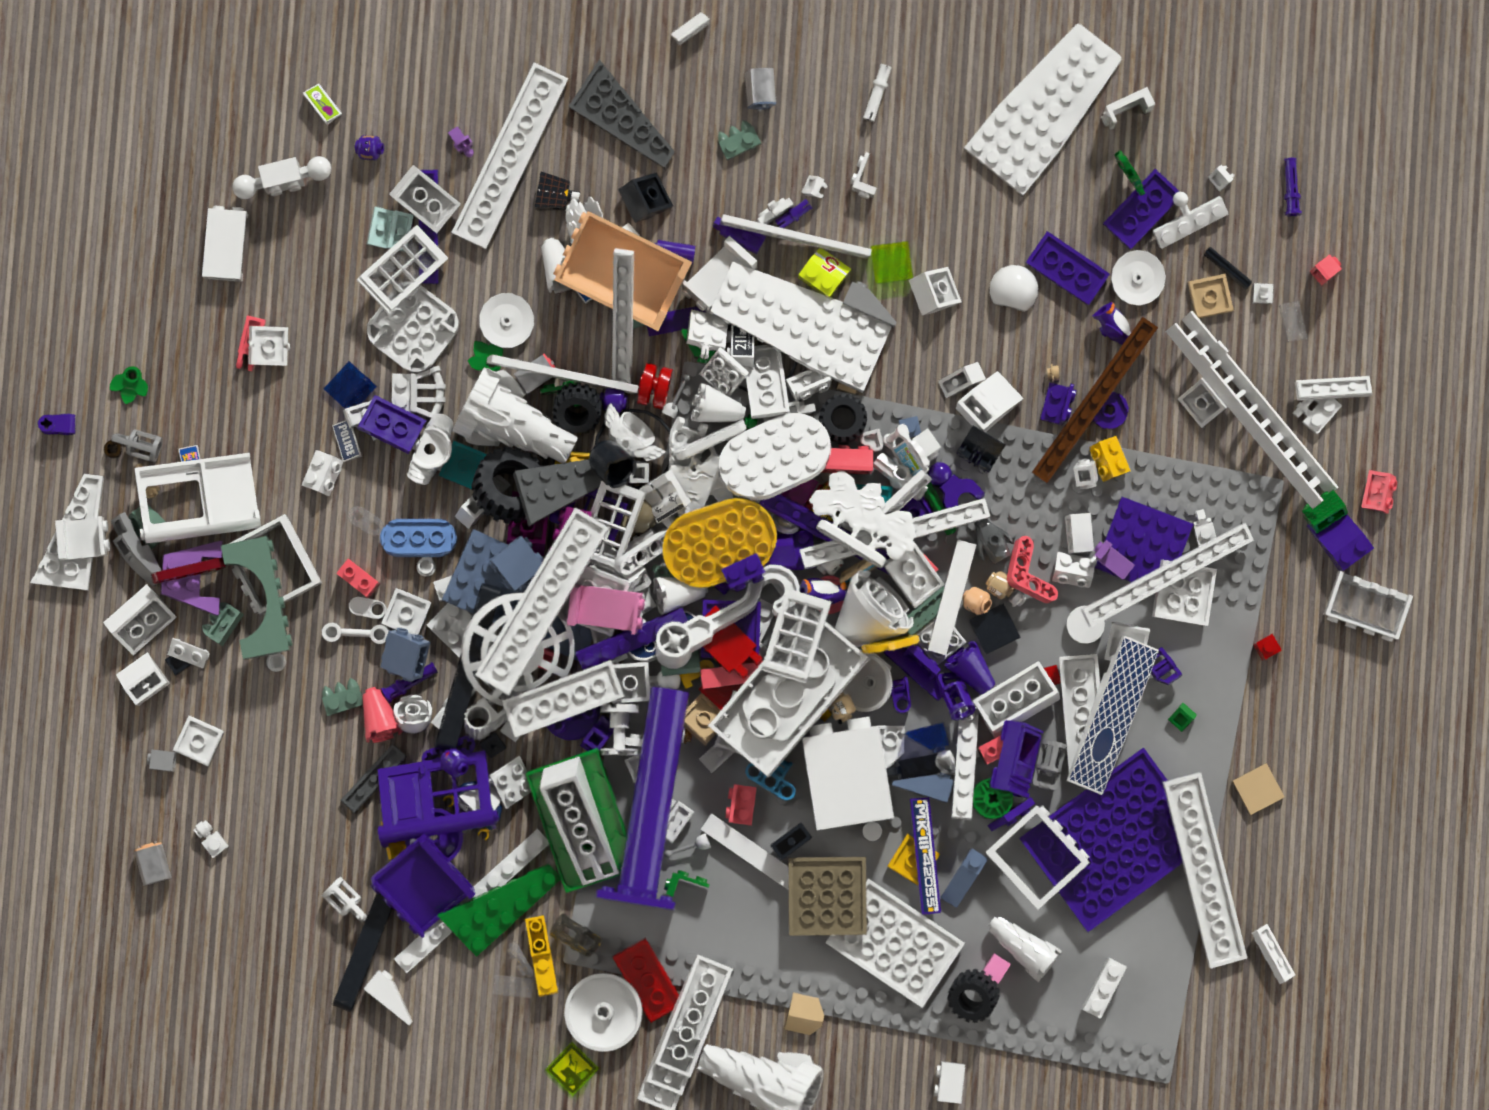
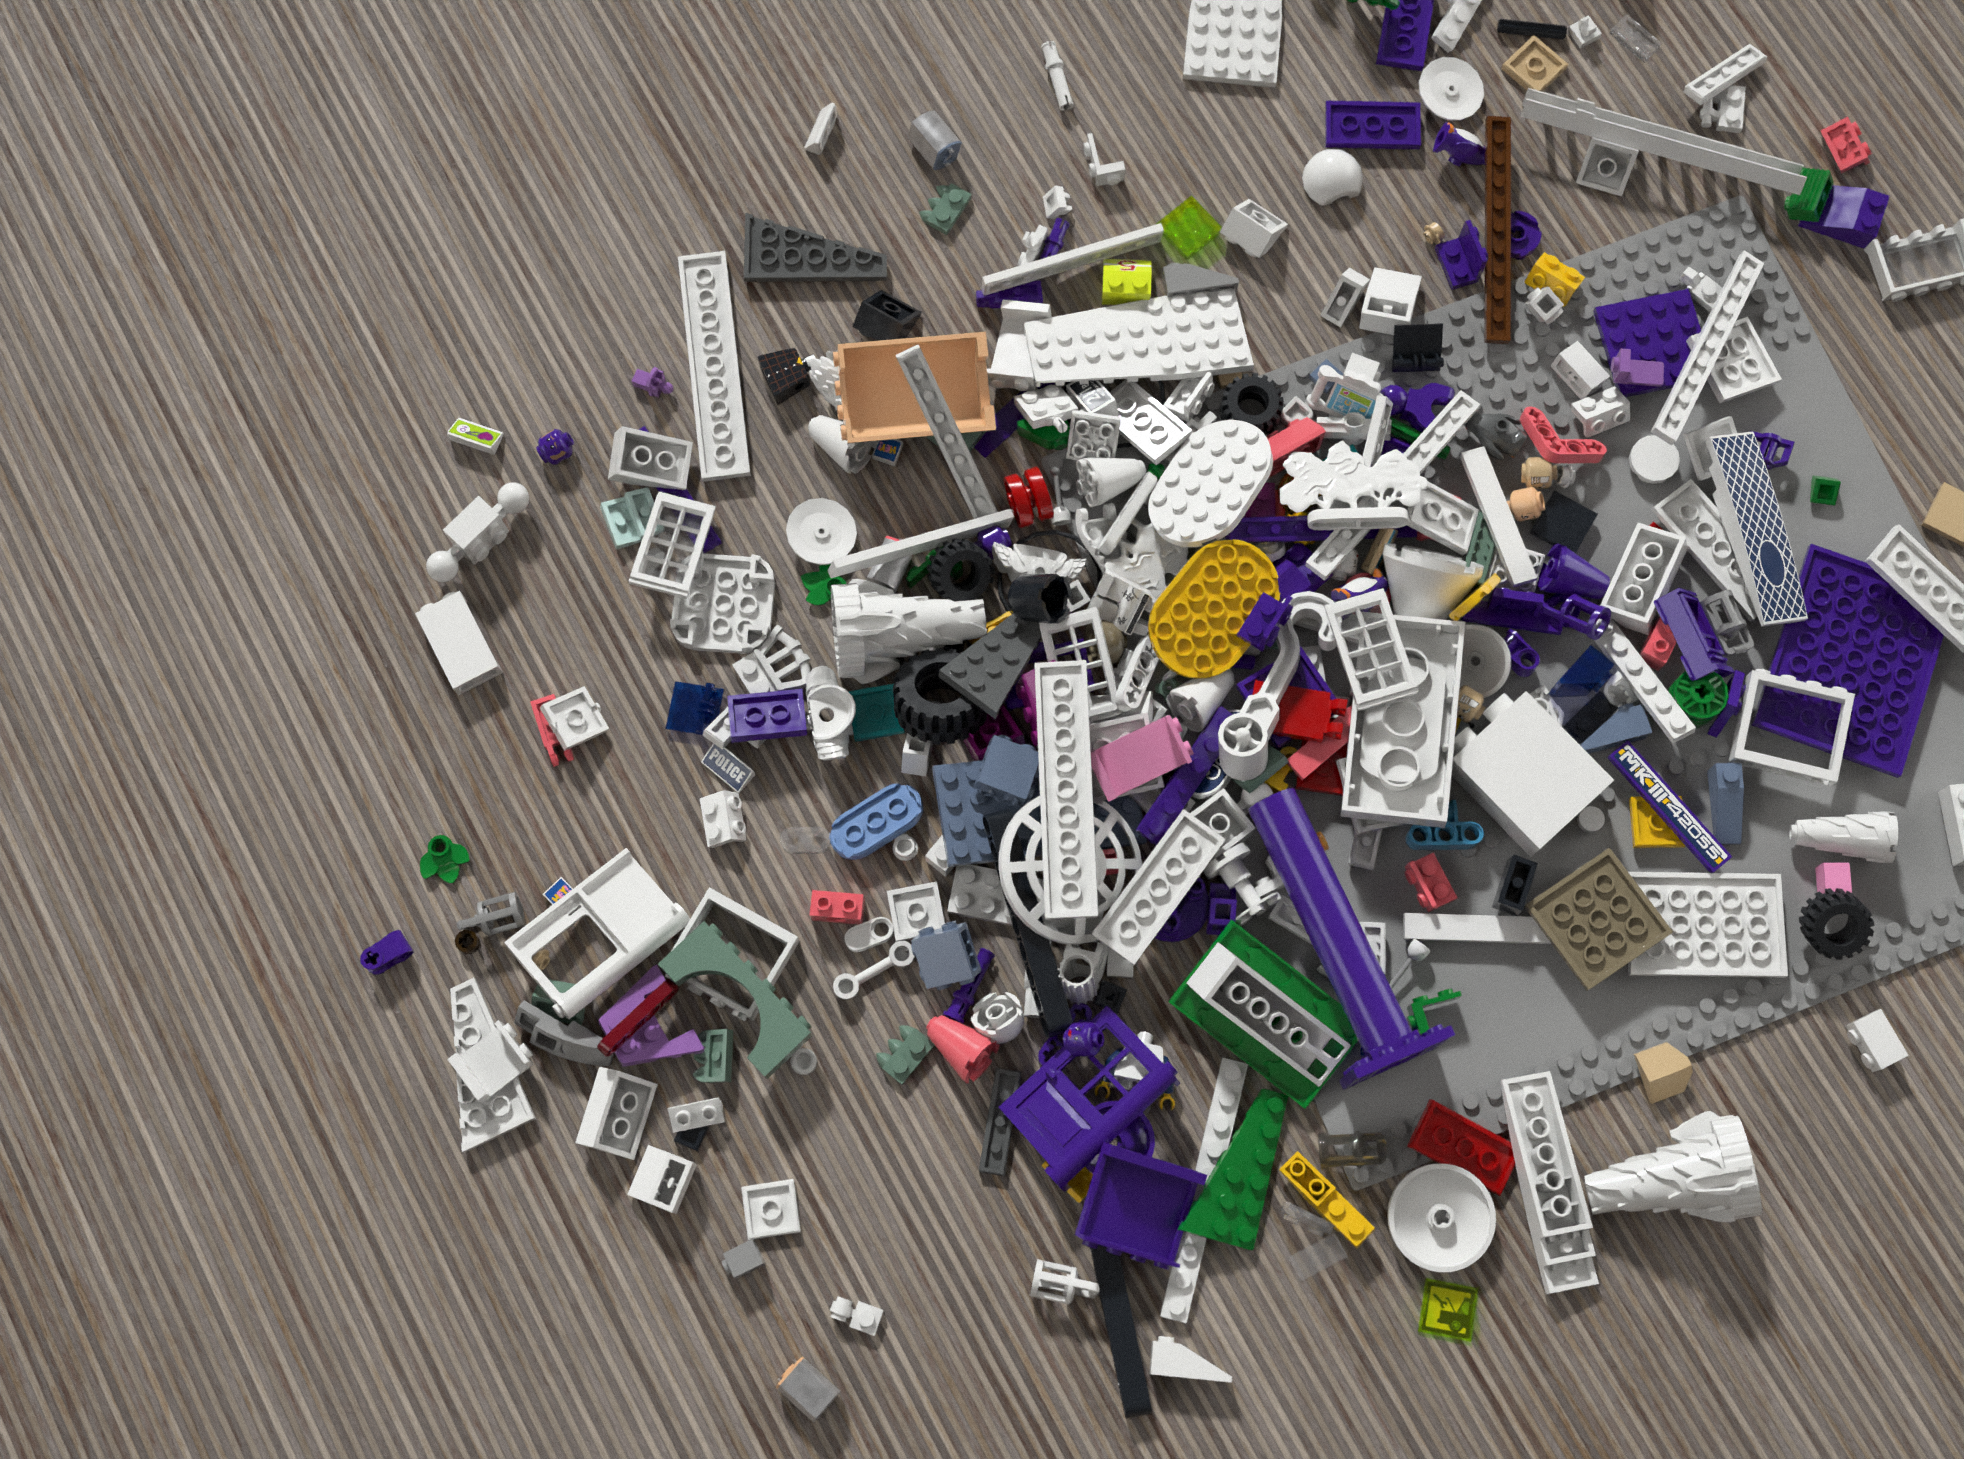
camera: 25 degrees left, 10 degrees down
(511, 782) = (1160, 1022): white hinge -> none
(698, 718) = (1325, 814): tan tile -> none
(1267, 647) = (1856, 364): red brick -> none

